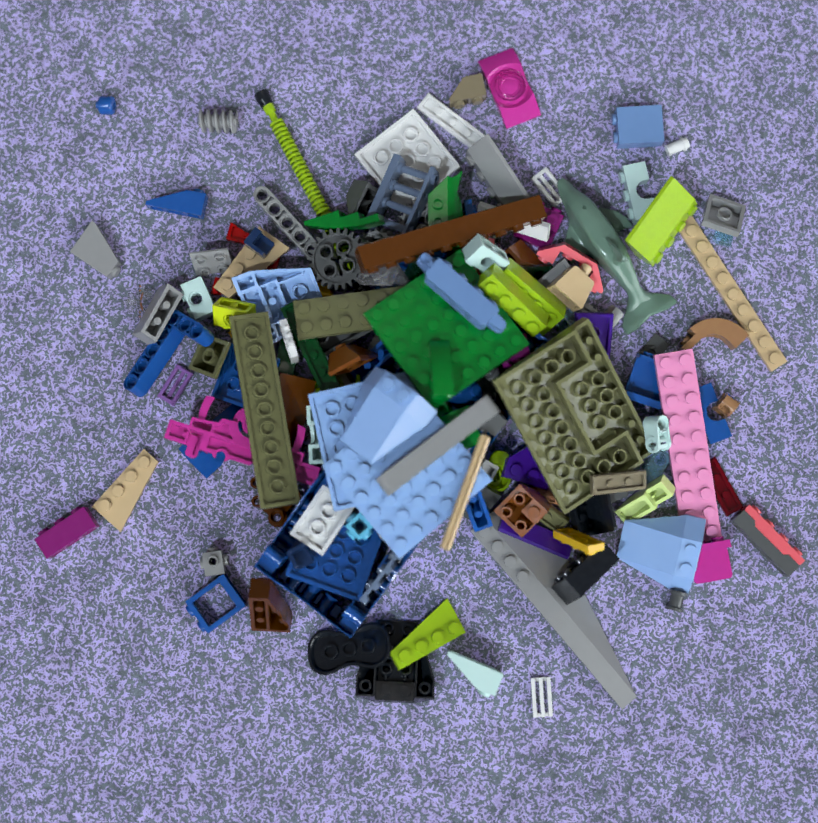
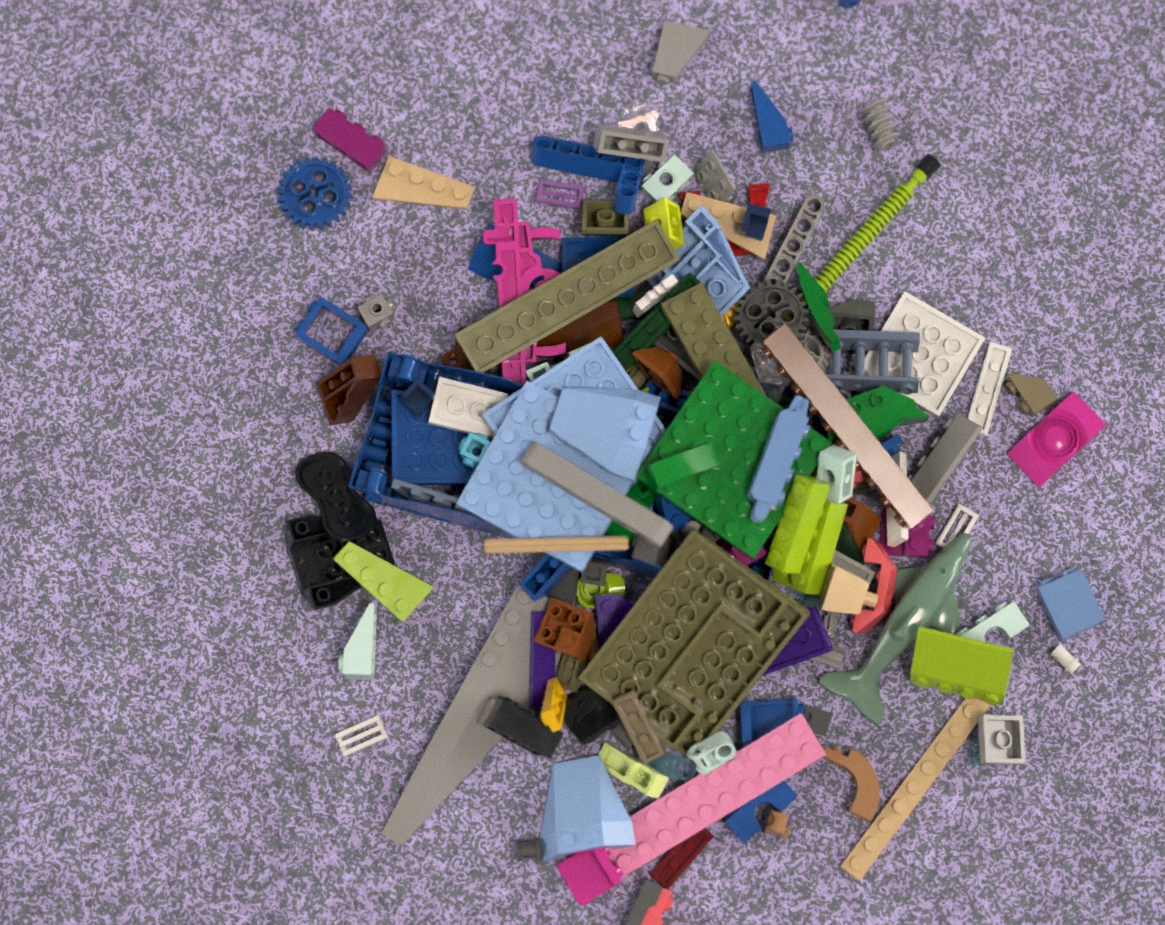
camera: 70 degrees right, 5 degrees down
(81, 577) = (324, 211): none -> blue gear

